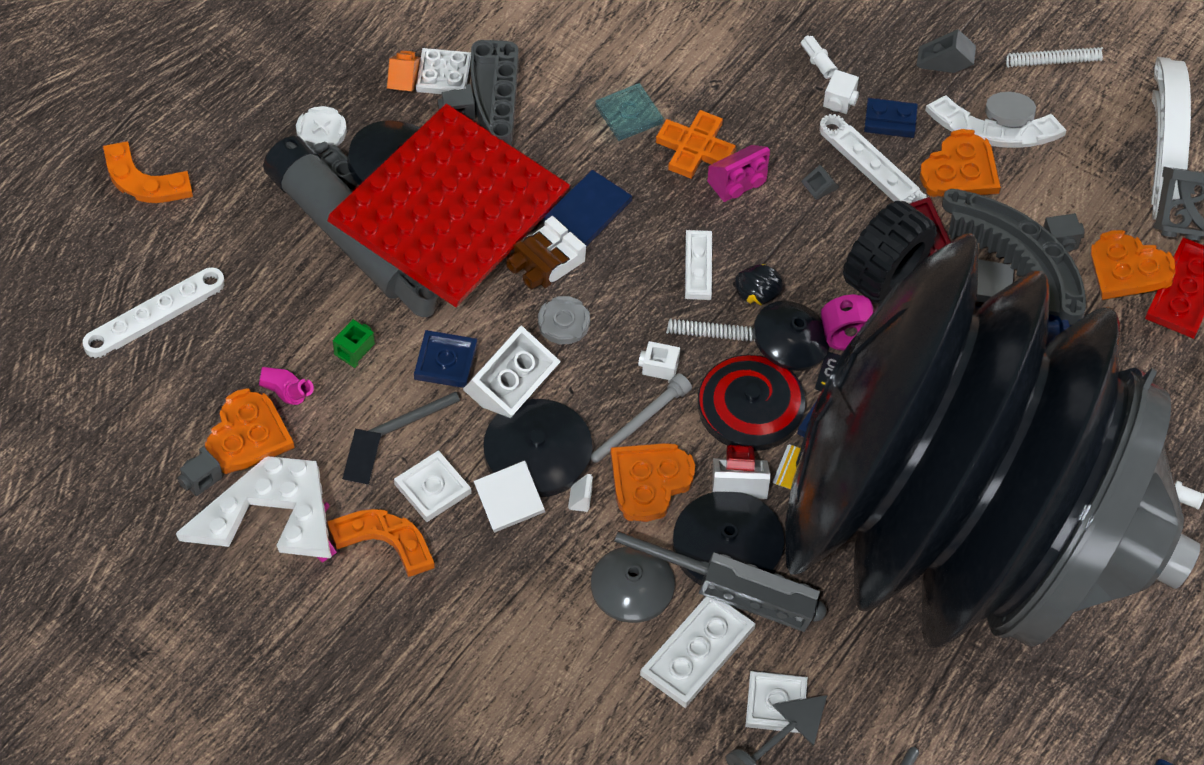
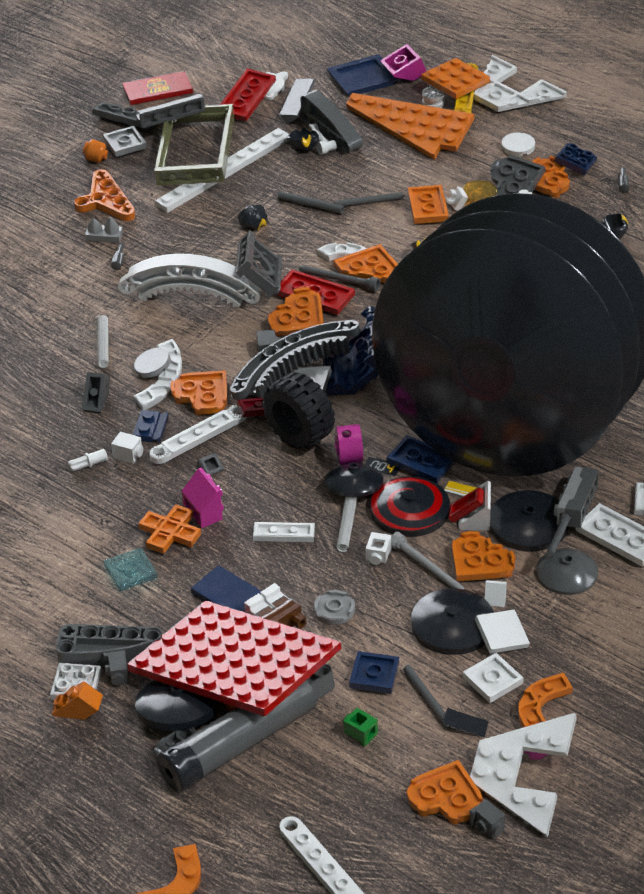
camera: 85 degrees left, 15 degrees down
(285, 385) = (403, 768): dark pink arm -> none
(321, 125) = (130, 761): white tile -> none
(512, 374) = (391, 629): white slope -> none
(758, 284) = (306, 497): black hair -> none

